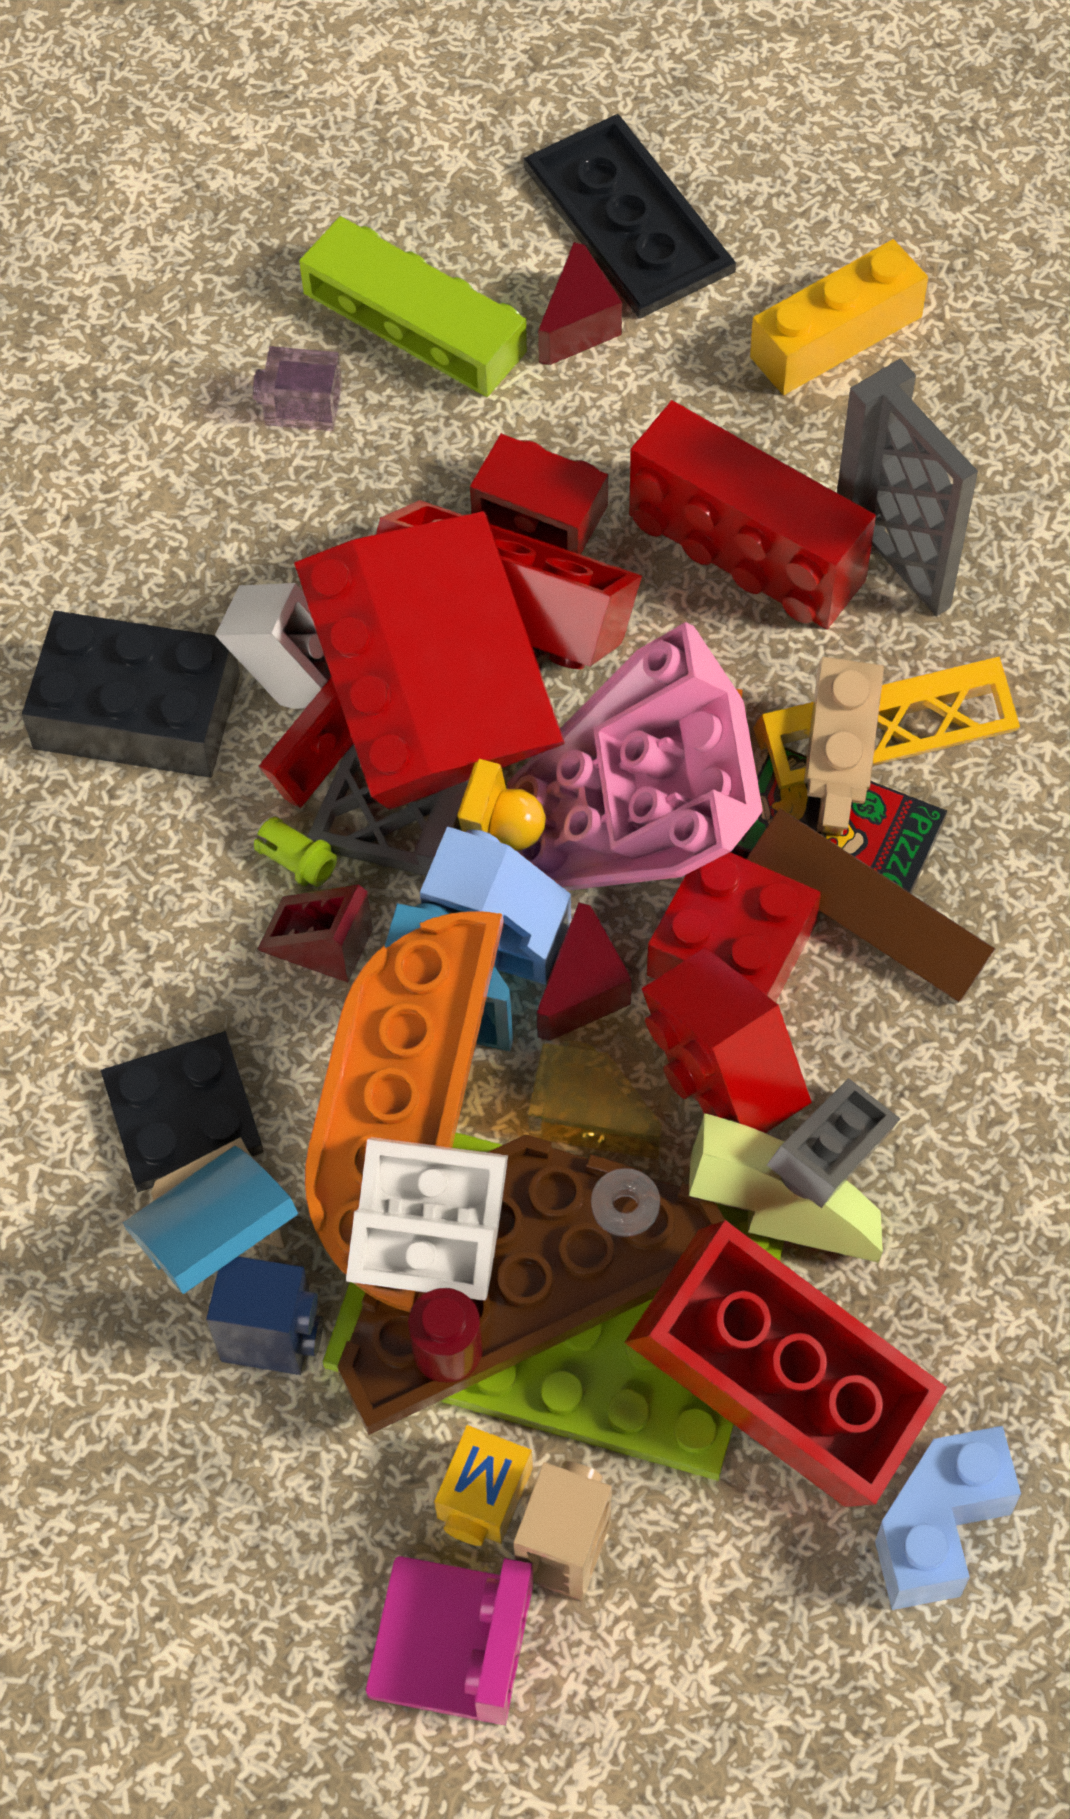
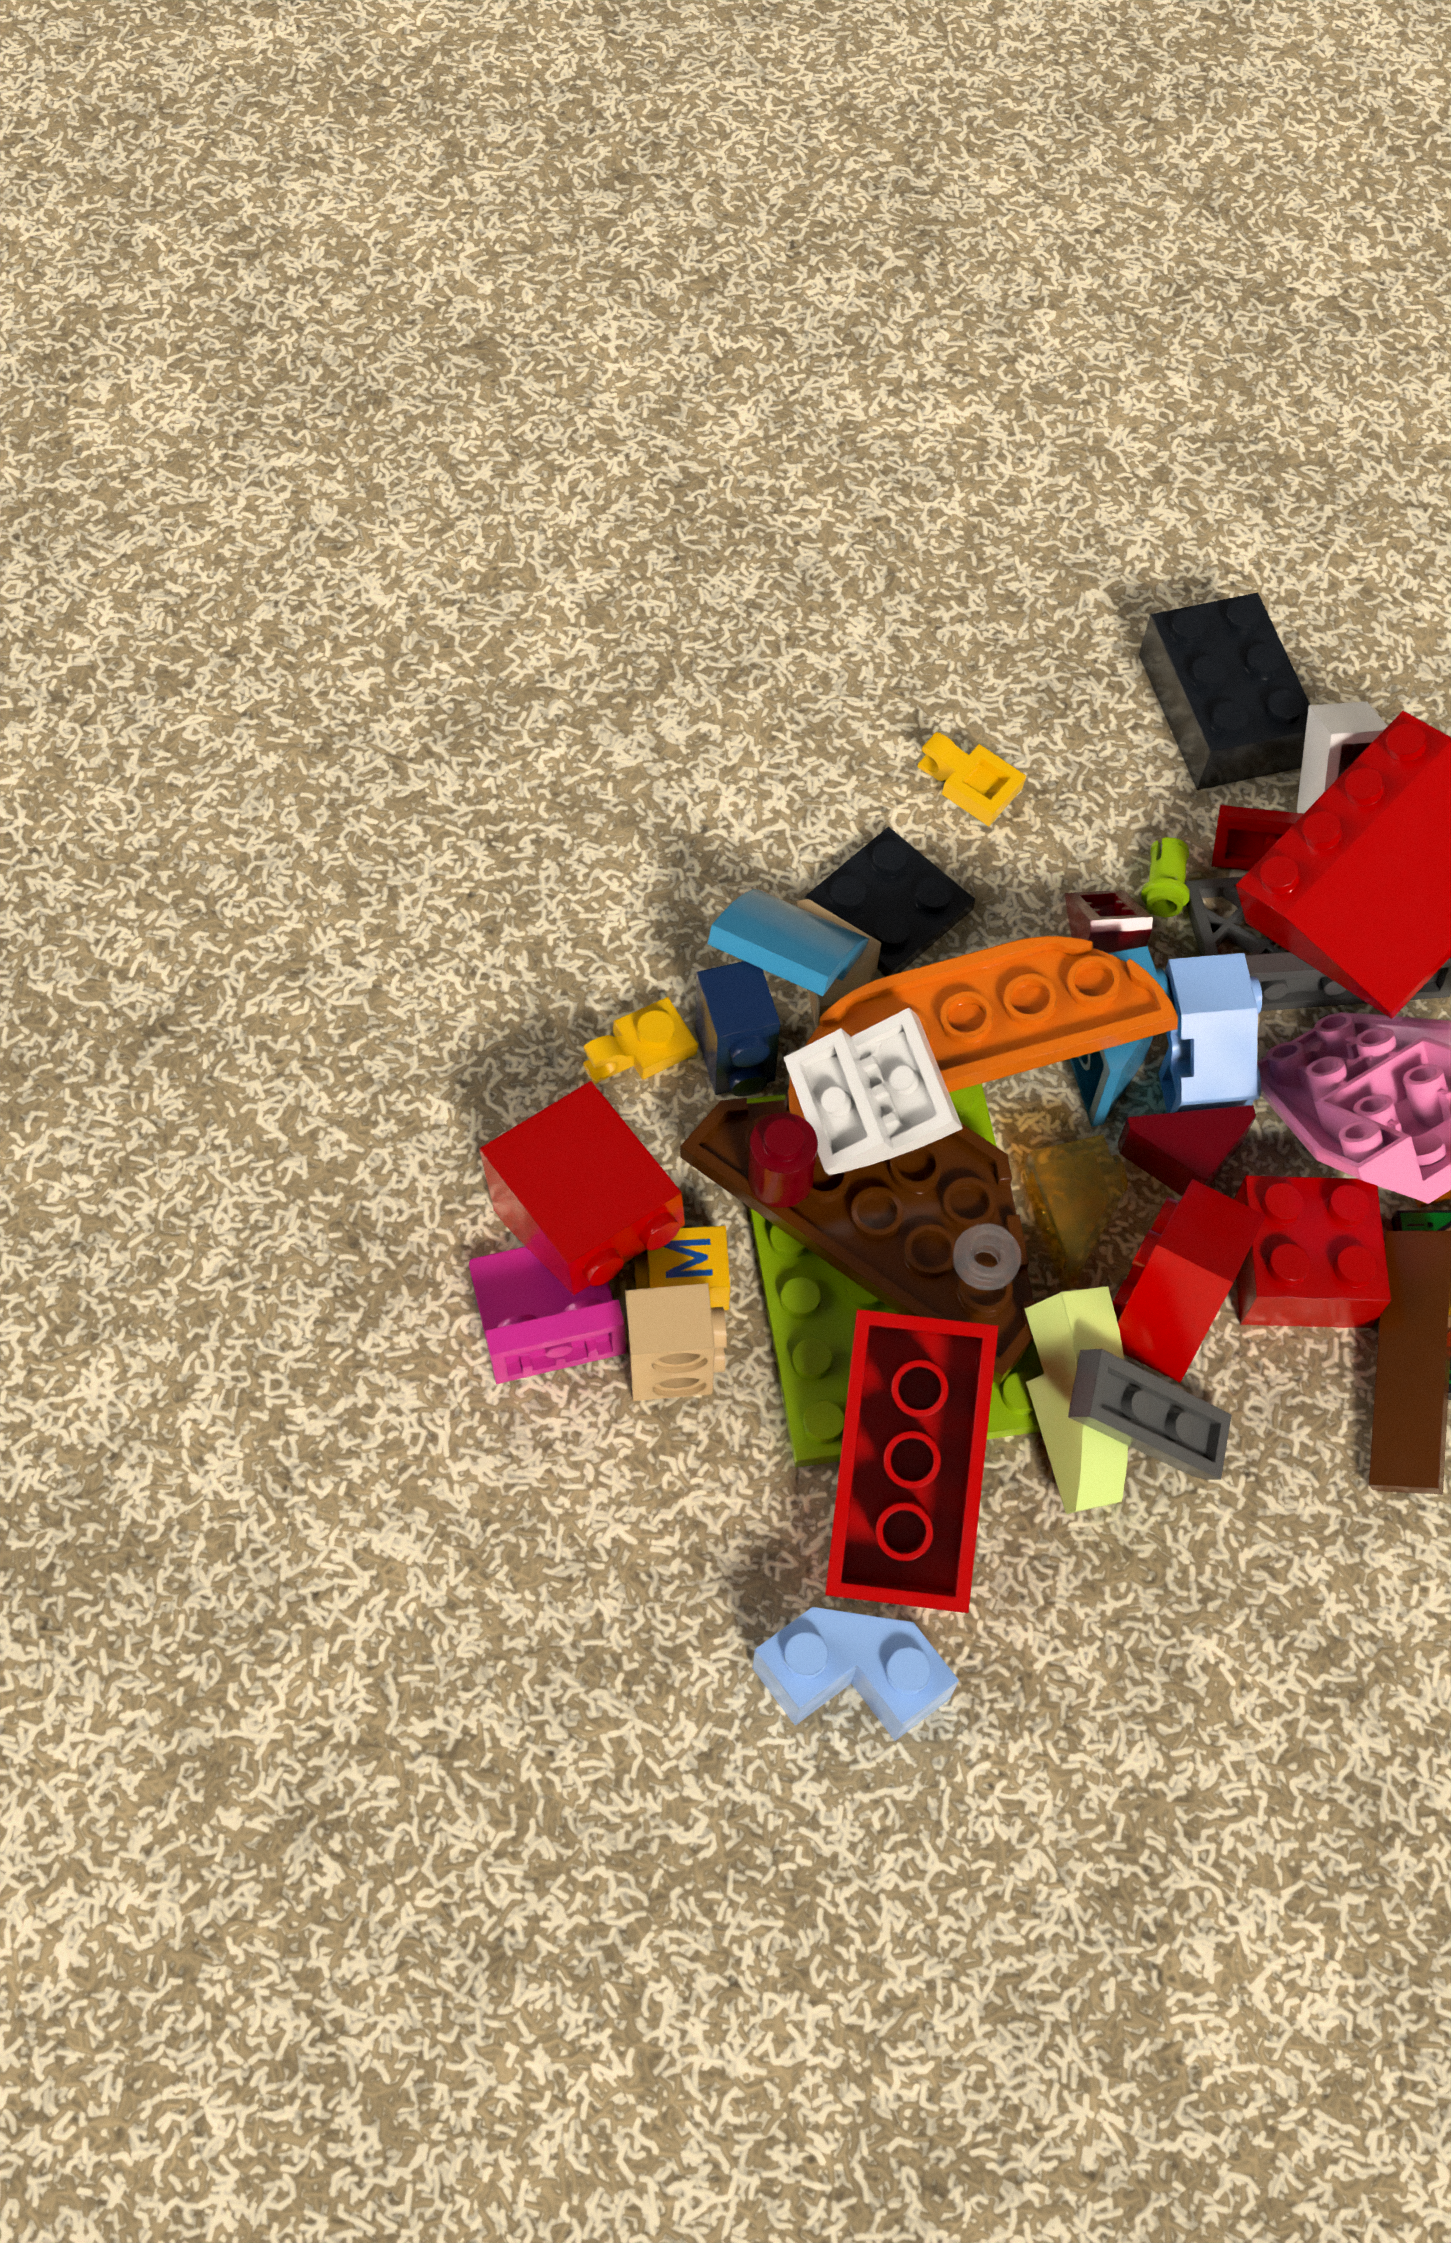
camera: 60 degrees right, 0 degrees up
(95, 961) = (975, 781): none -> yellow plate
(210, 1411) = (643, 1039): none -> yellow plate
(375, 1542) = (581, 1189): none -> red slope
(507, 814) = (1294, 996): yellow tile -> none

